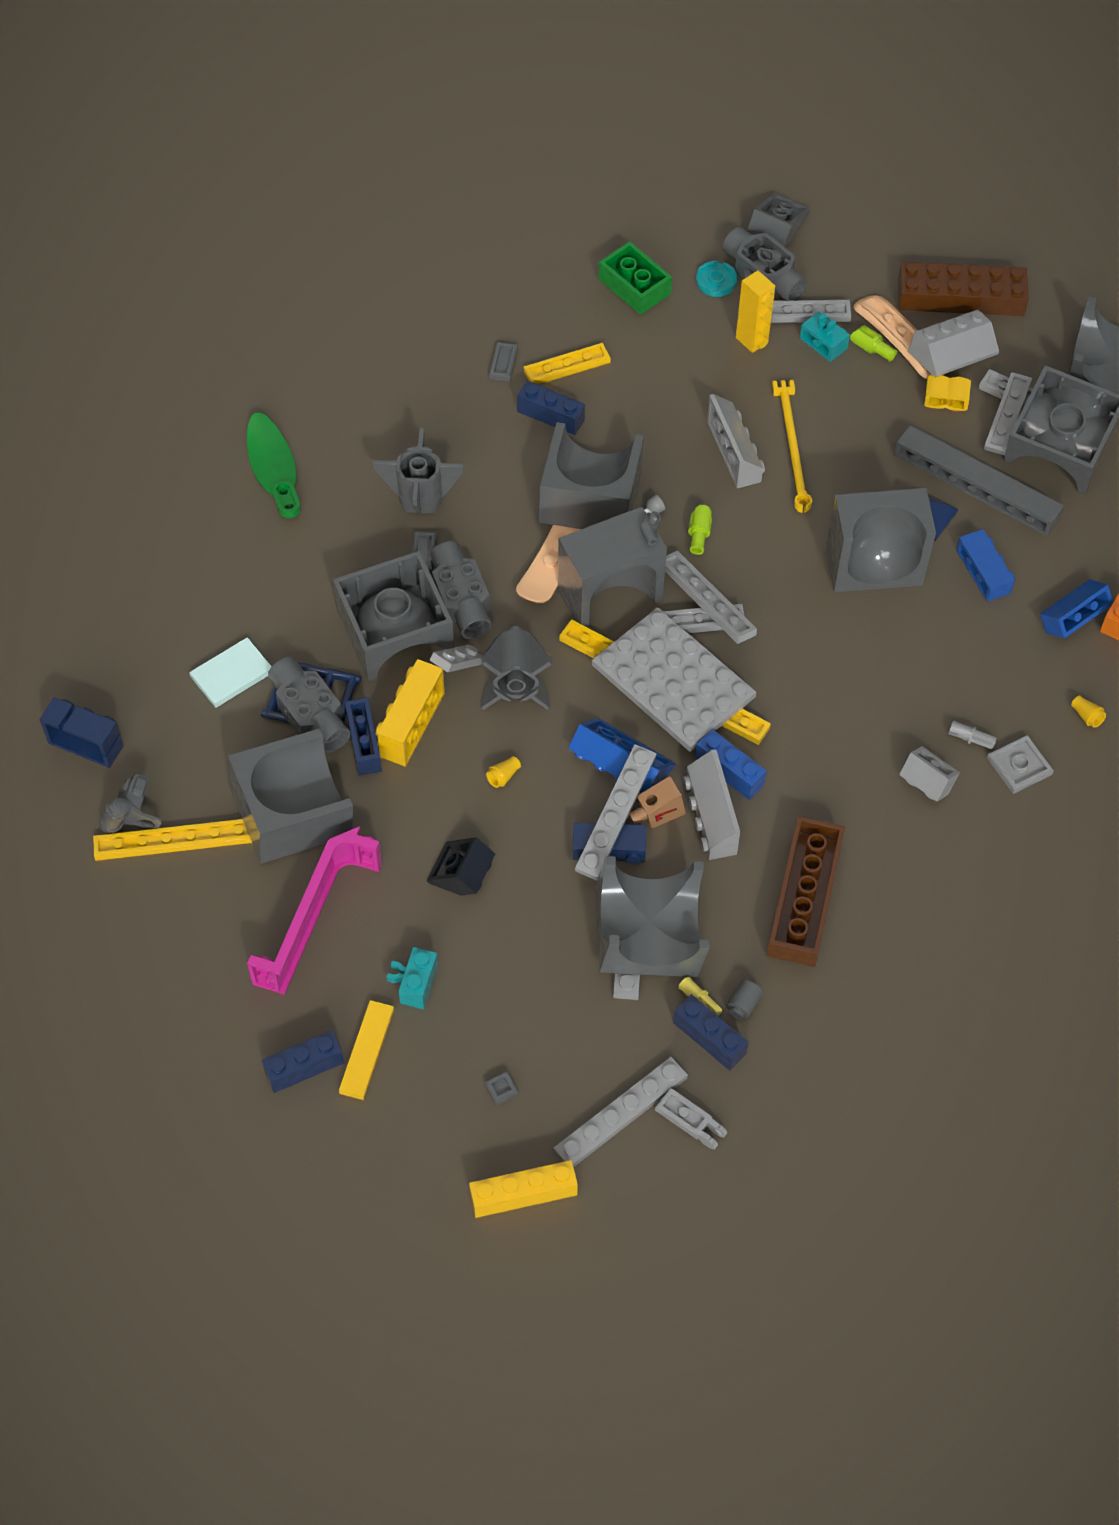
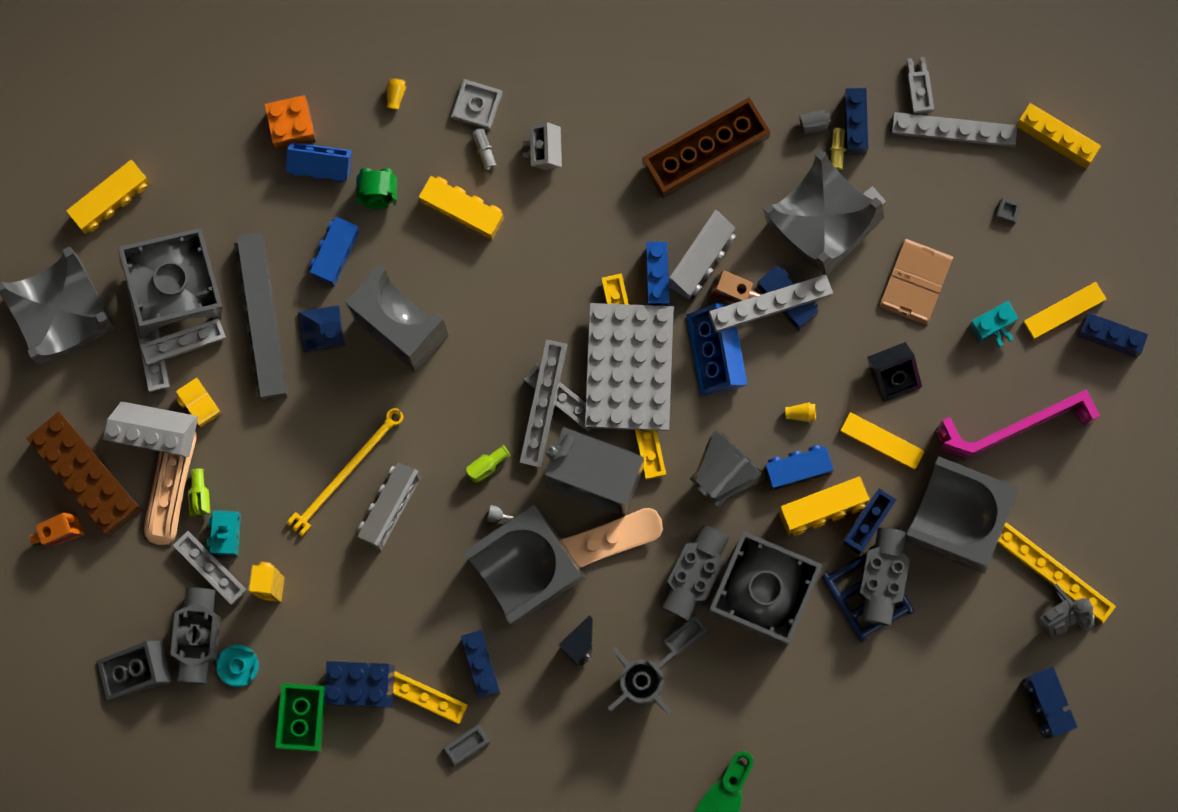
camera: 130 degrees left, 20 degrees up
(231, 672) = (903, 664): light aqua tile -> none
(415, 811) = (882, 441): none -> yellow tile
(457, 658) = (756, 515): light grey plate -> none
(461, 729) = (798, 467): none -> blue brick
(493, 471) = (579, 643): none -> black slope
(519, 958) = (916, 281): none -> medium nougat piece
(608, 326) = (359, 684): none -> dark blue piece
(934, 238) = (57, 530): none -> orange torso
(935, 677) = (461, 207): none -> yellow brick
(1011, 626) = (376, 188): none -> green brick

